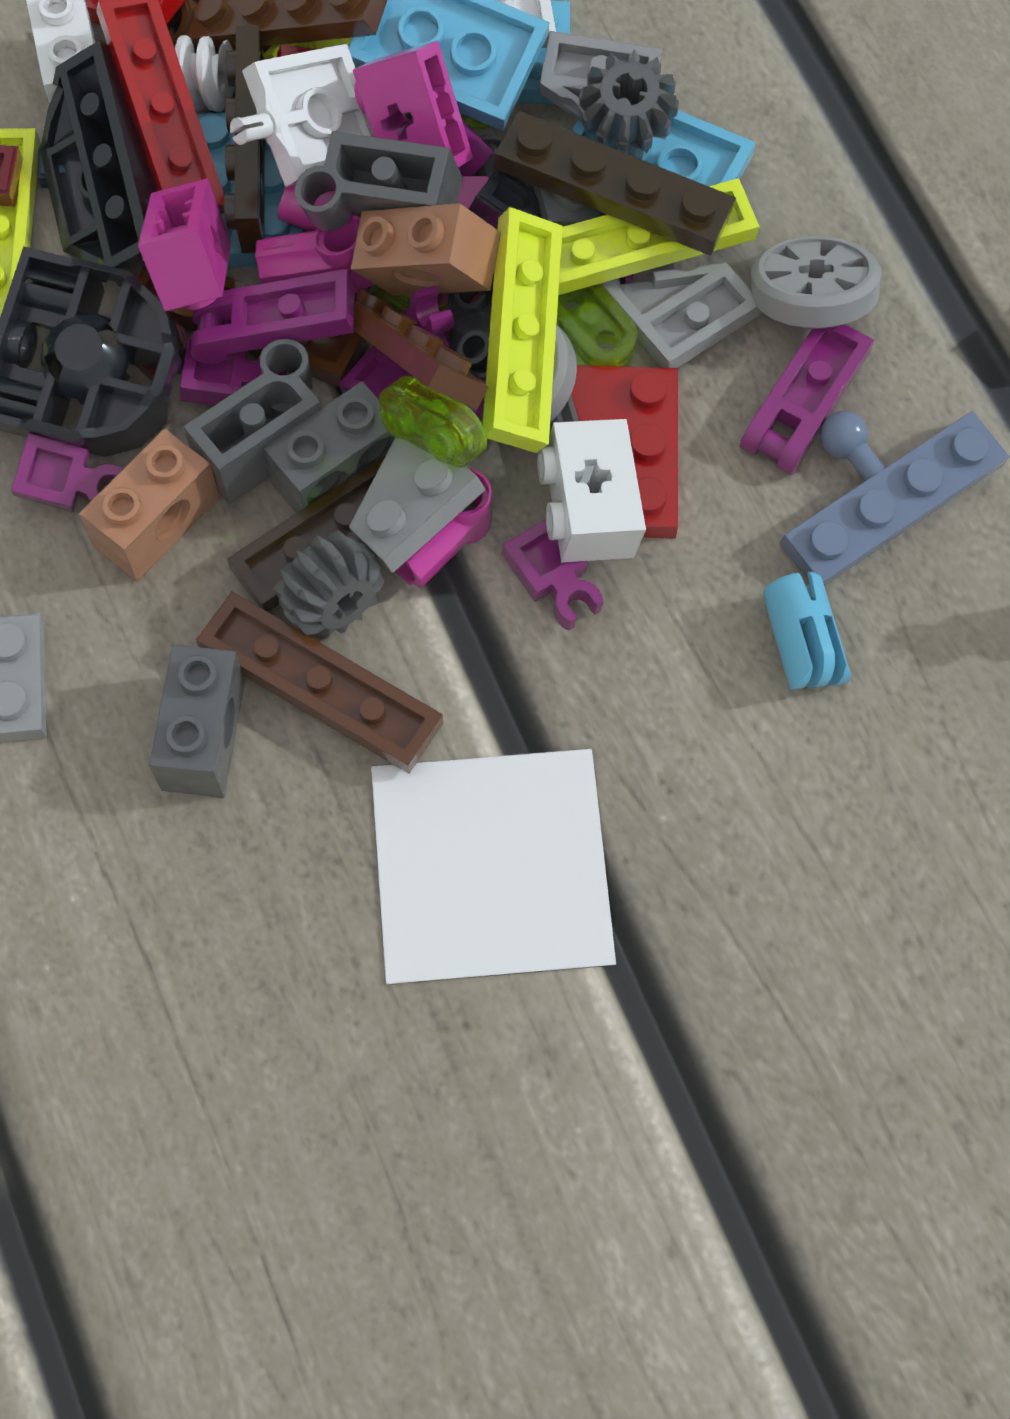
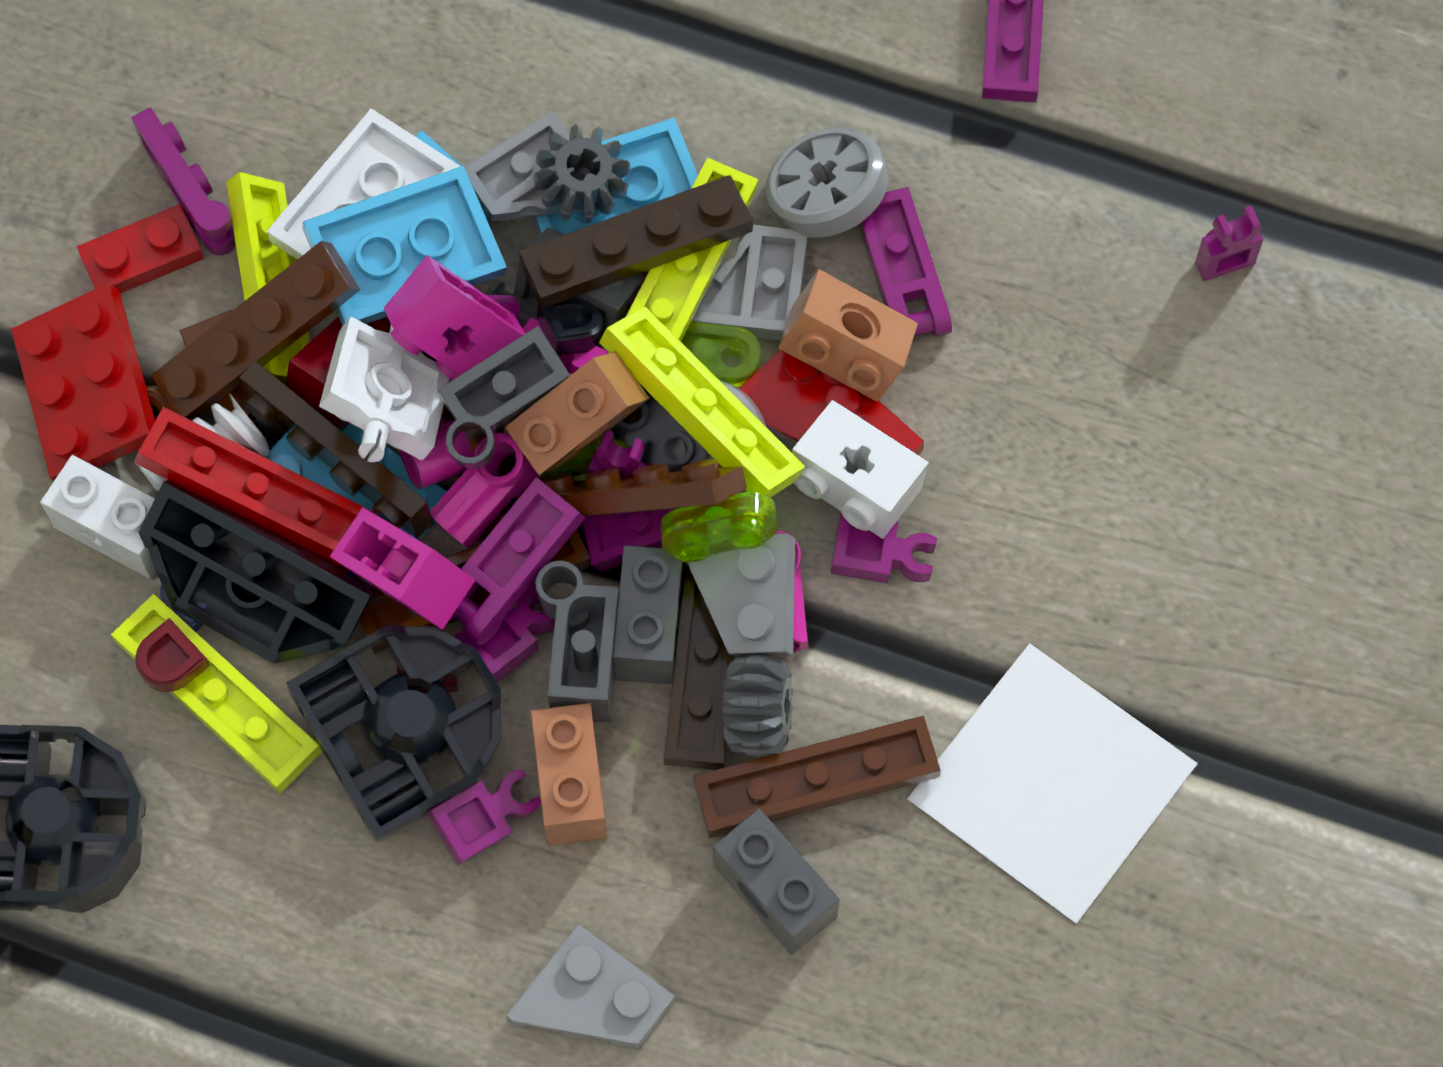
camera: 45 degrees left, 0 degrees up
(699, 393) = (848, 335): none -> nougat brick
(806, 632) = (1082, 431): medium azure arm -> none
(891, 496) = (1030, 284): sand blue plate -> none

